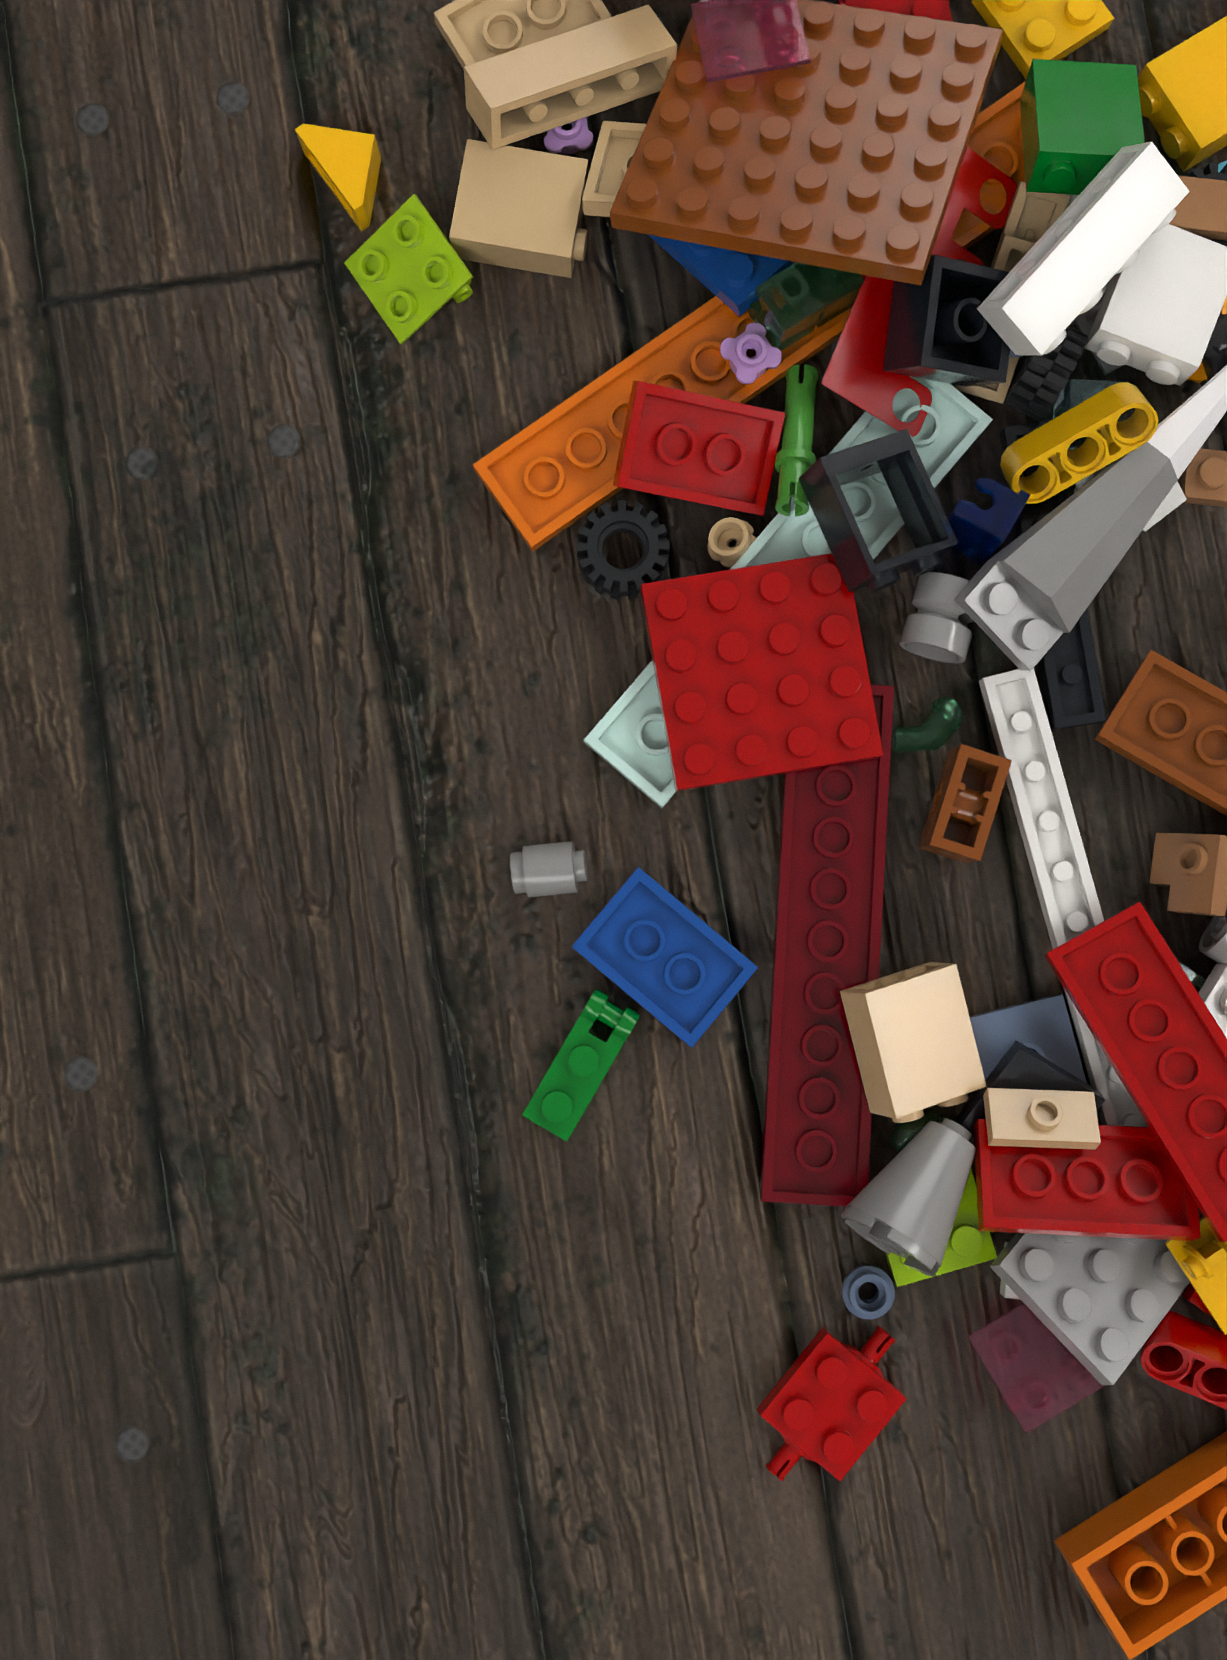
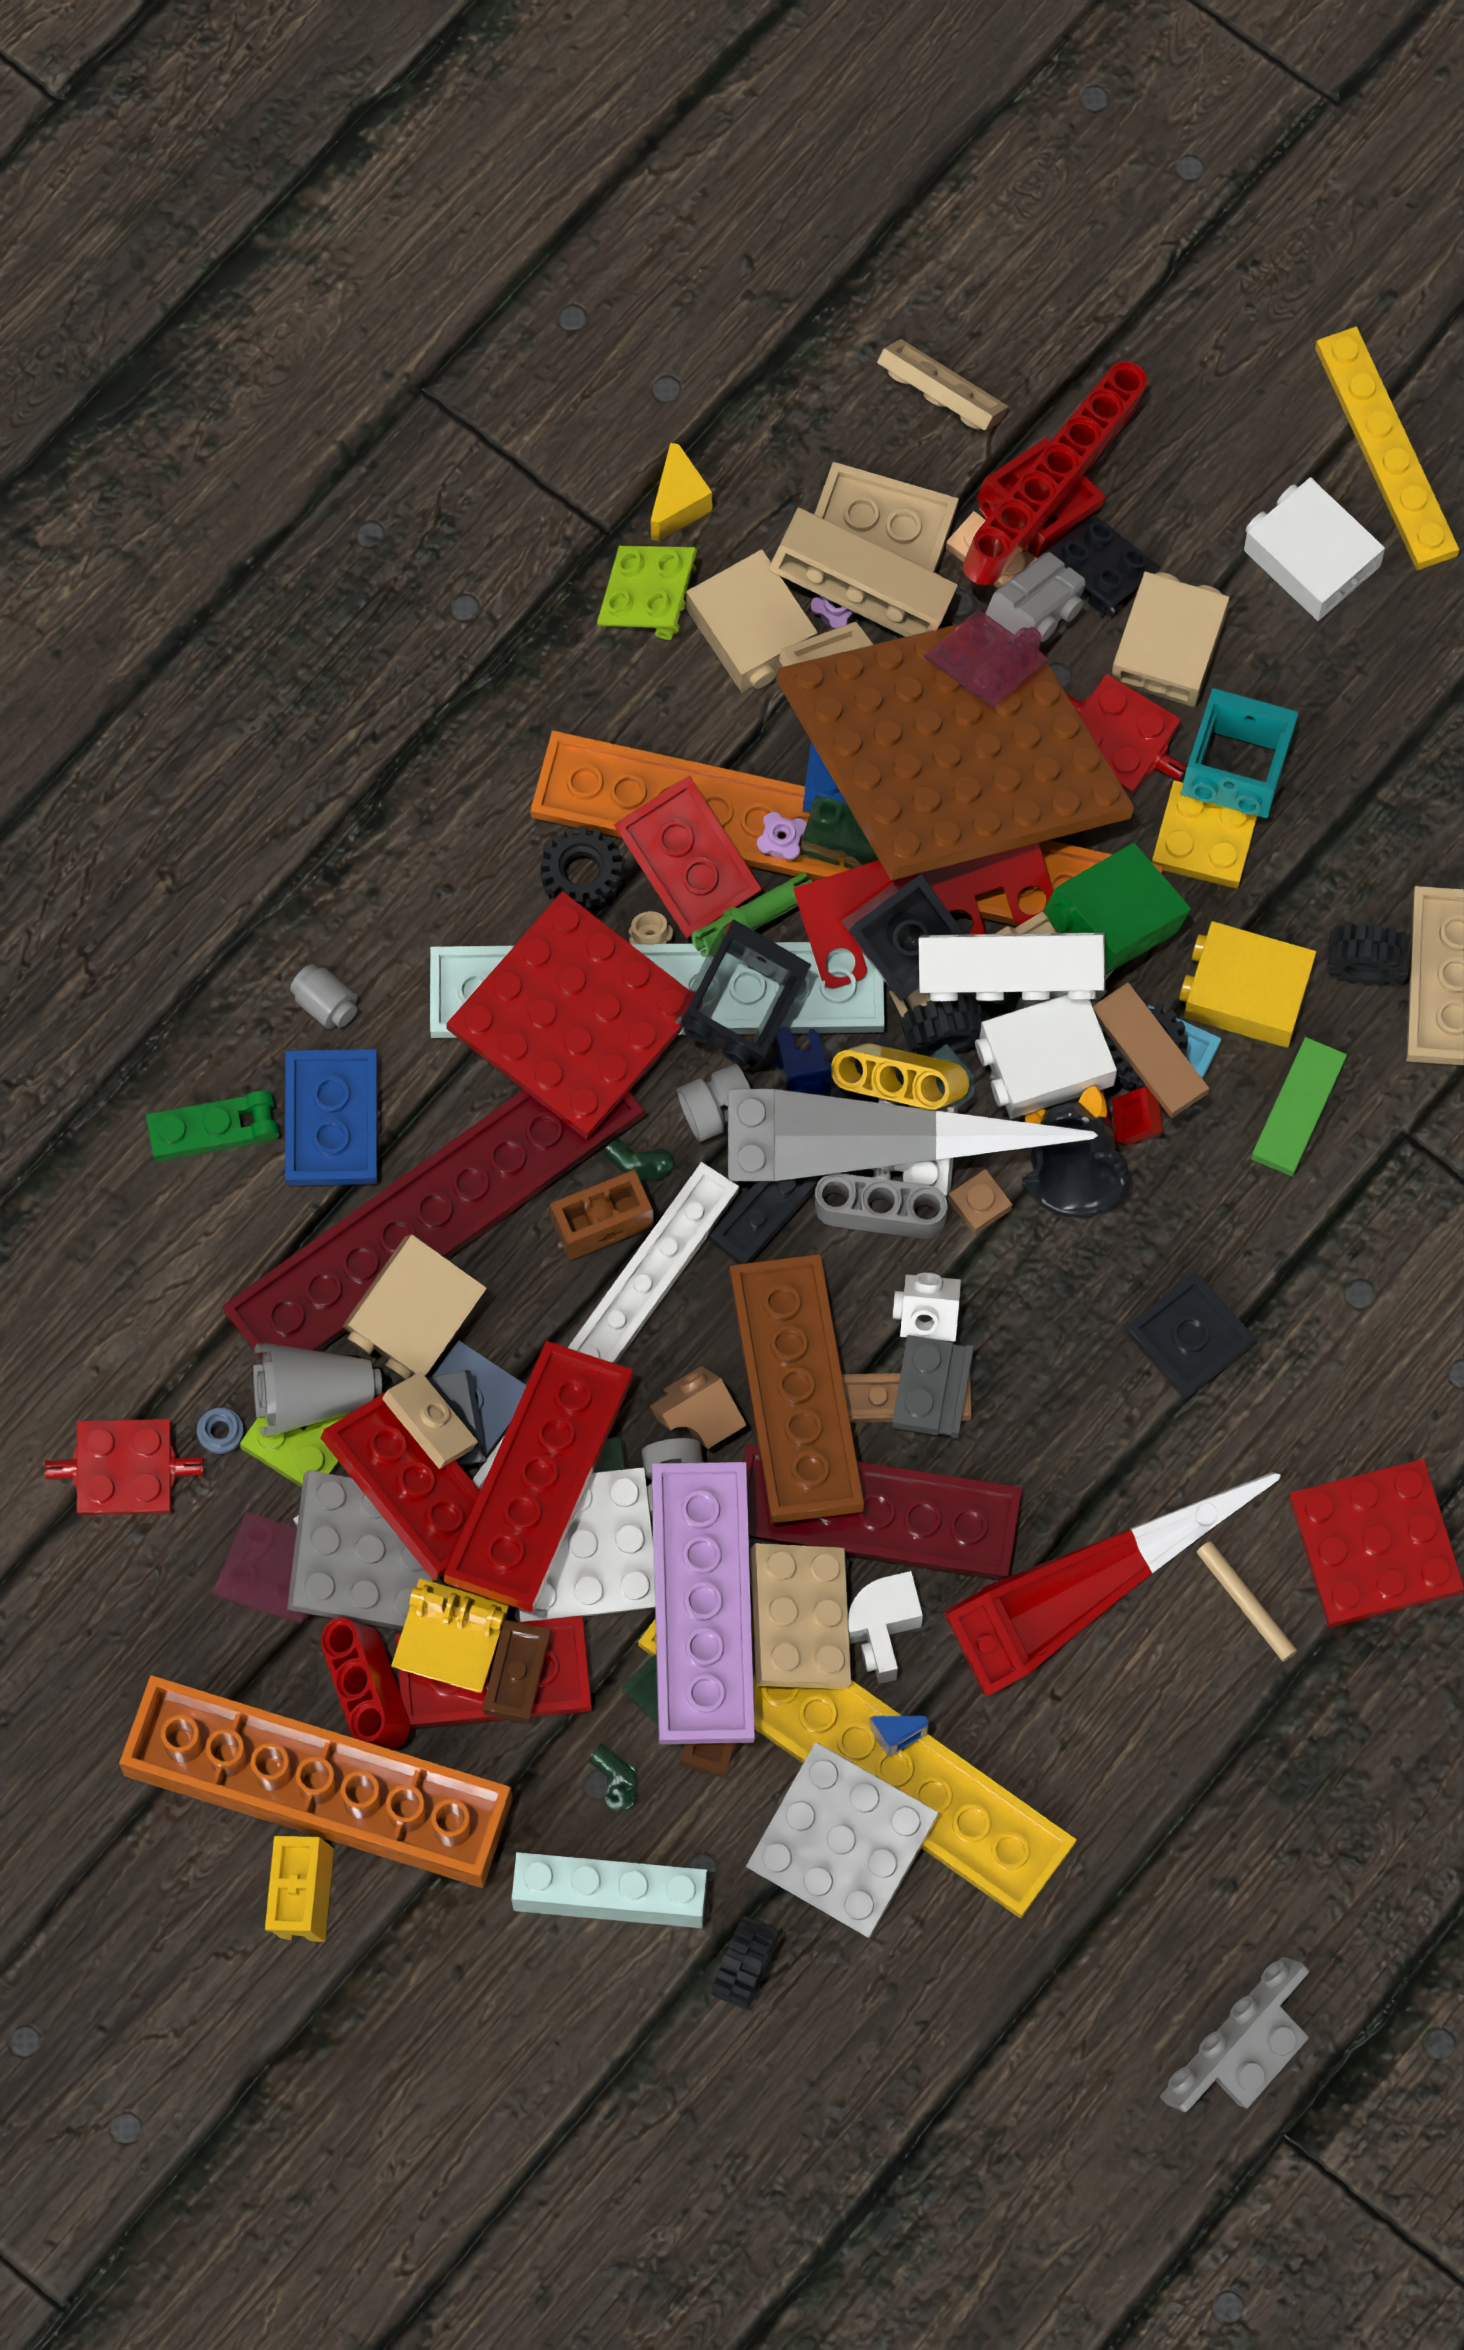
camera: 55 degrees right, 15 degrees down
(1171, 552) = (863, 1190): none -> light grey beam

